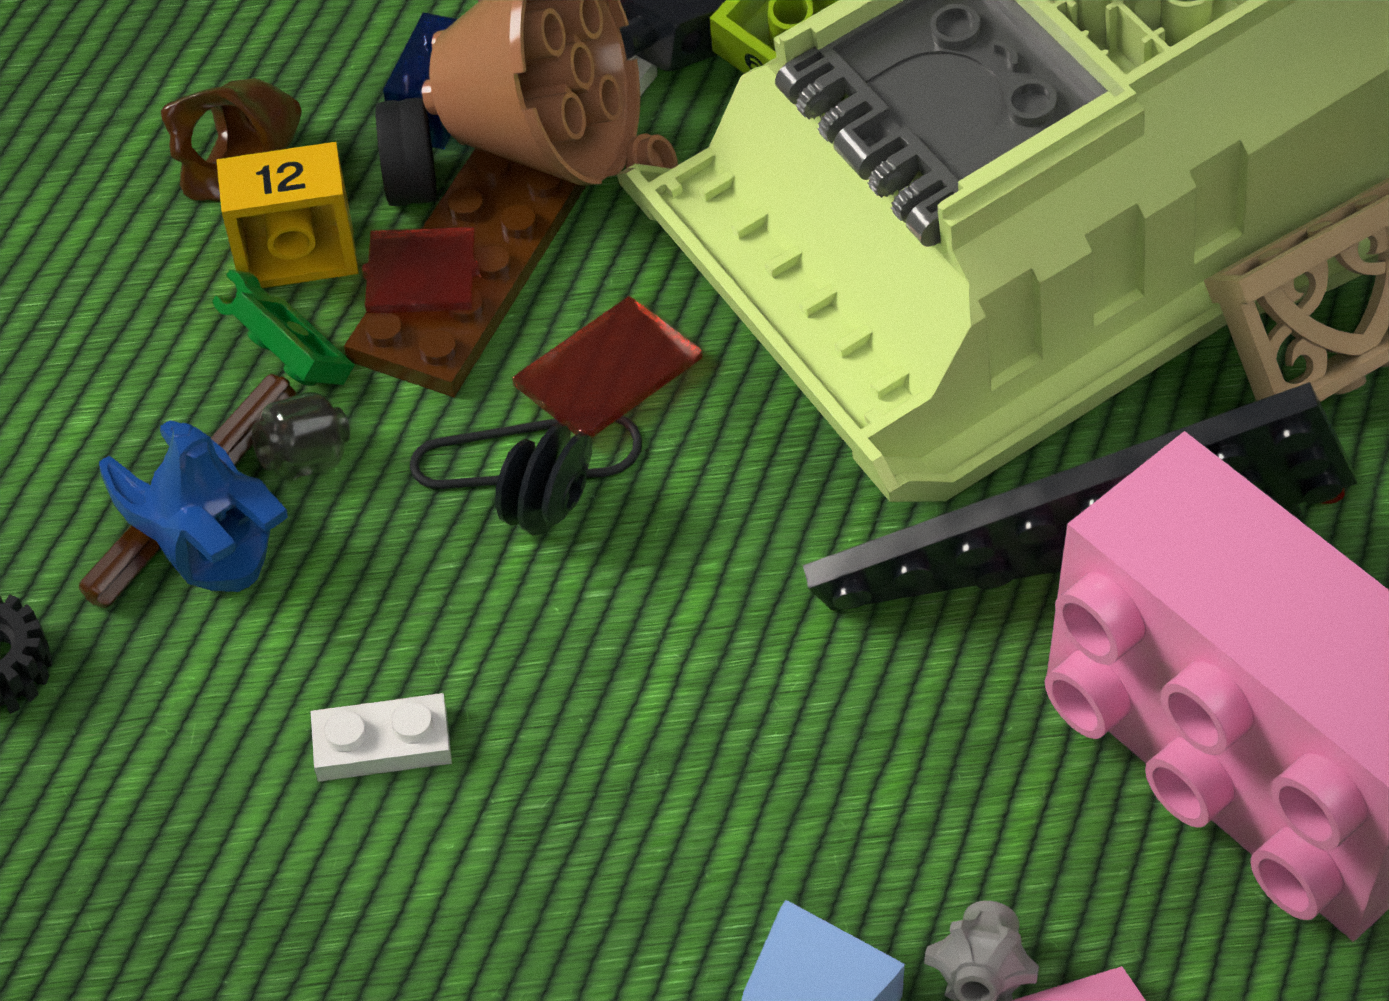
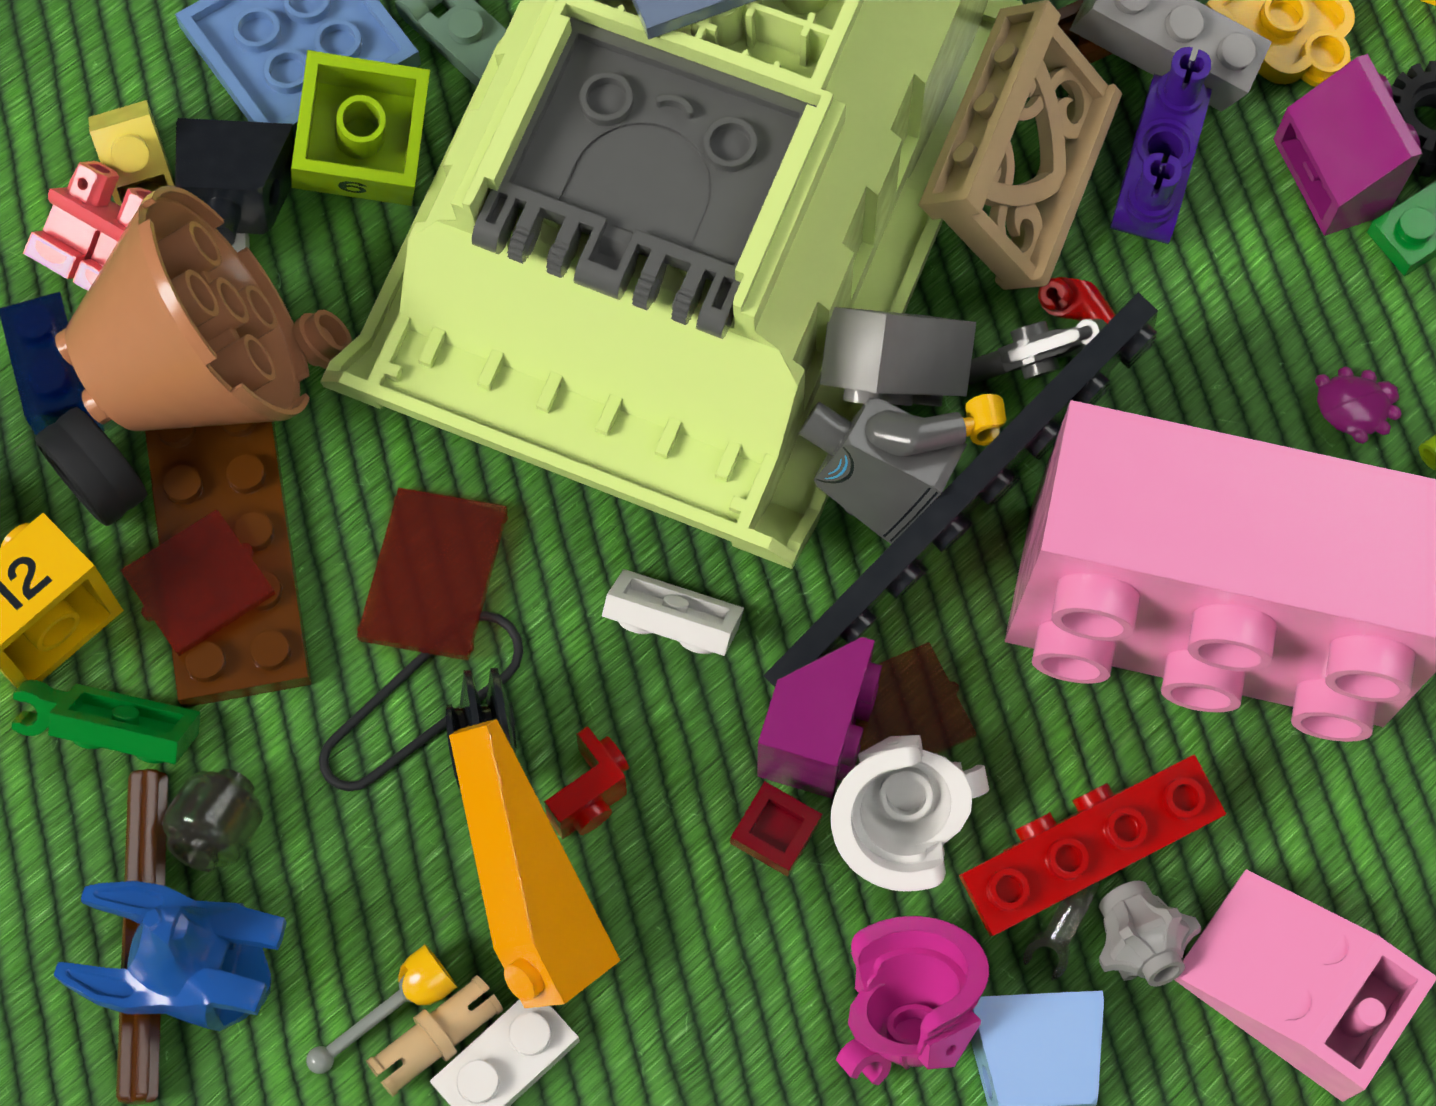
camera: 40 degrees left, 15 degrees up
(340, 682) = (434, 1035): none -> tan pin
(363, 639) = (420, 981): none -> hinge
(483, 624) = (529, 888): none -> light orange slope
(600, 580) = (588, 799): none -> red bracket
(726, 688) = (776, 828): none -> dark red tile
(739, 878) = (914, 996): none -> dark pink helmet
(760, 479) = (677, 613): none -> white plate
(823, 618) = (812, 716): none -> magenta slope
(837, 725) = (901, 811): none -> white helmet
(912, 677) = (917, 700): none -> clear red piece
(977, 883) = (1063, 927): none -> clear smoke arm
(986, 846) = (1091, 844): none -> red bracket
(1025, 435) = (894, 463): none -> dark grey torso
(1095, 377) = (897, 356): none -> light grey brick

